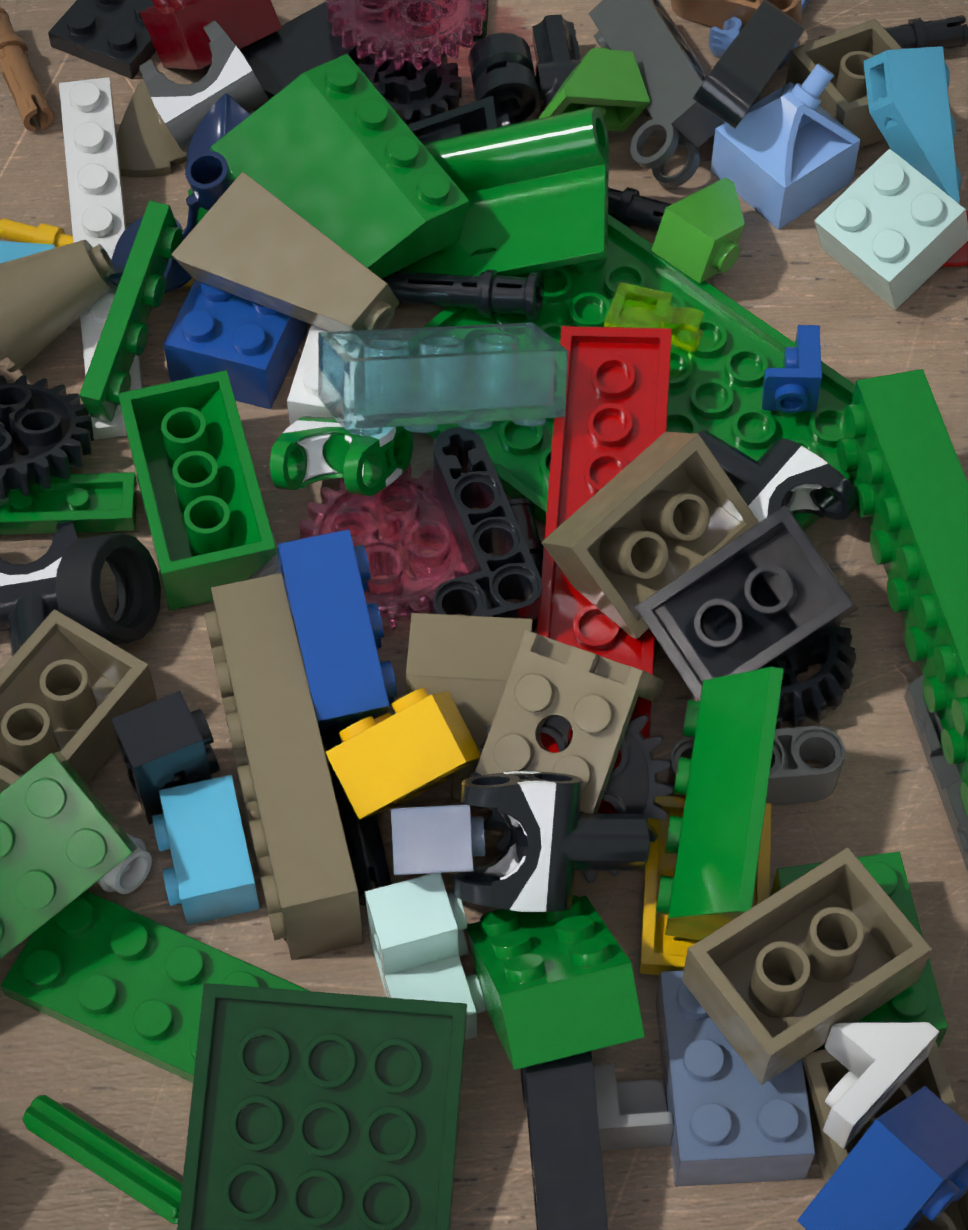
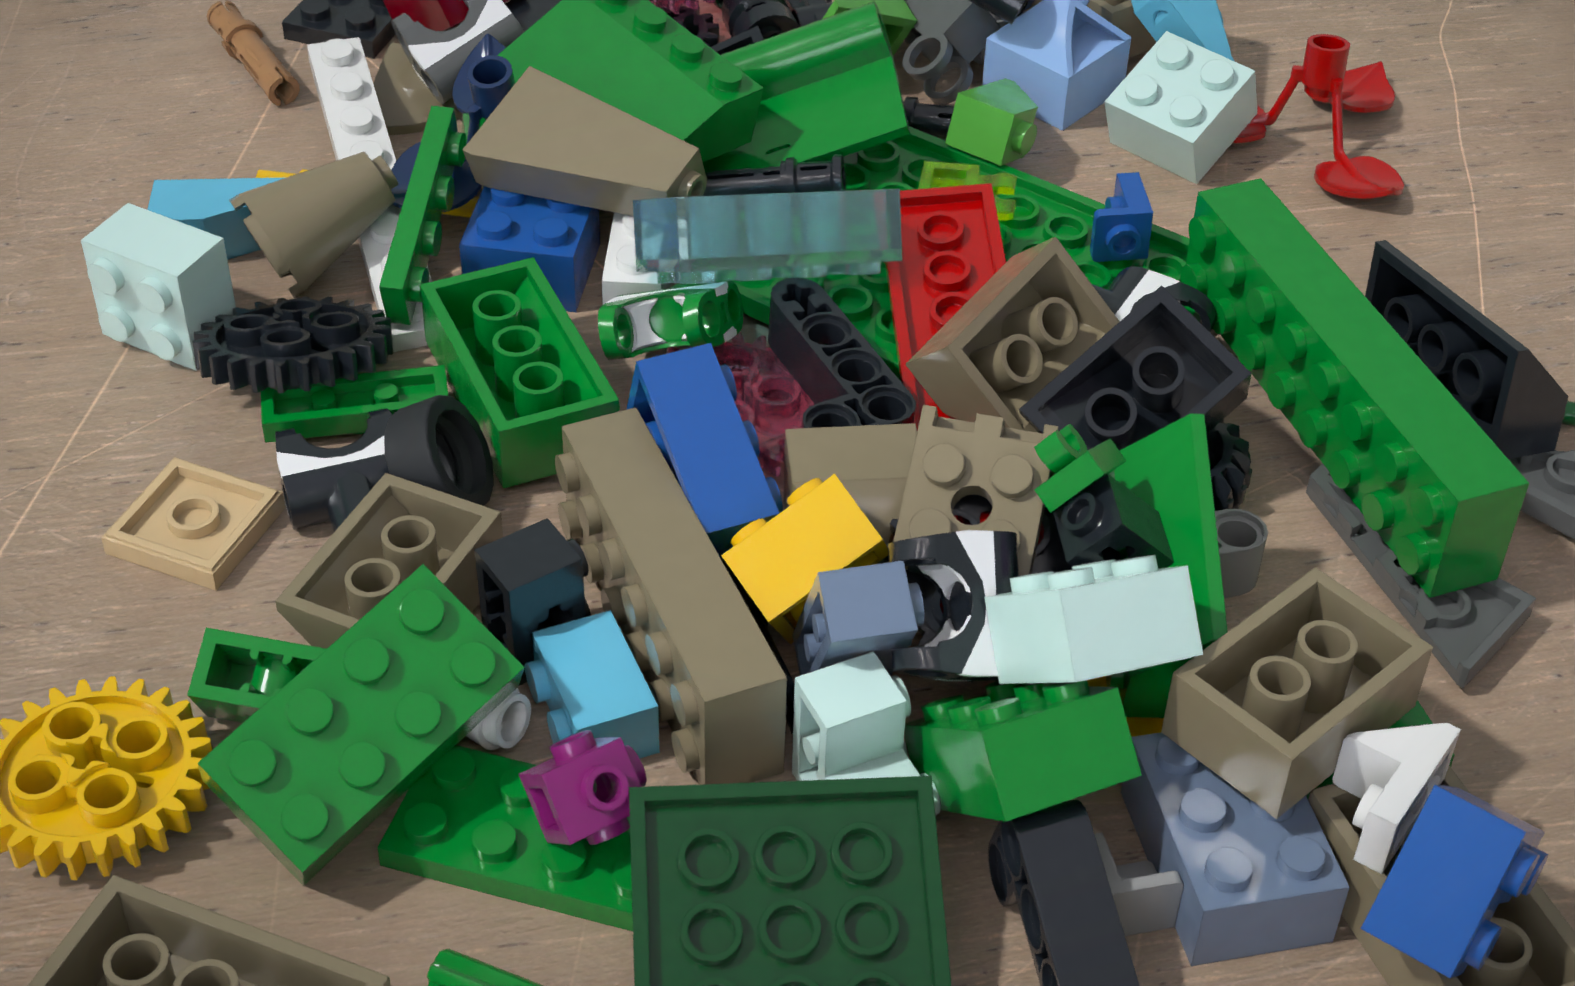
camera: 10 degrees left, 15 degrees down
(171, 968) = (584, 788): none -> magenta brick
(627, 889) = (1093, 621): none -> light aqua brick
(647, 717) = (1073, 465): none -> green tile
(675, 784) = (1105, 521): none -> black brick

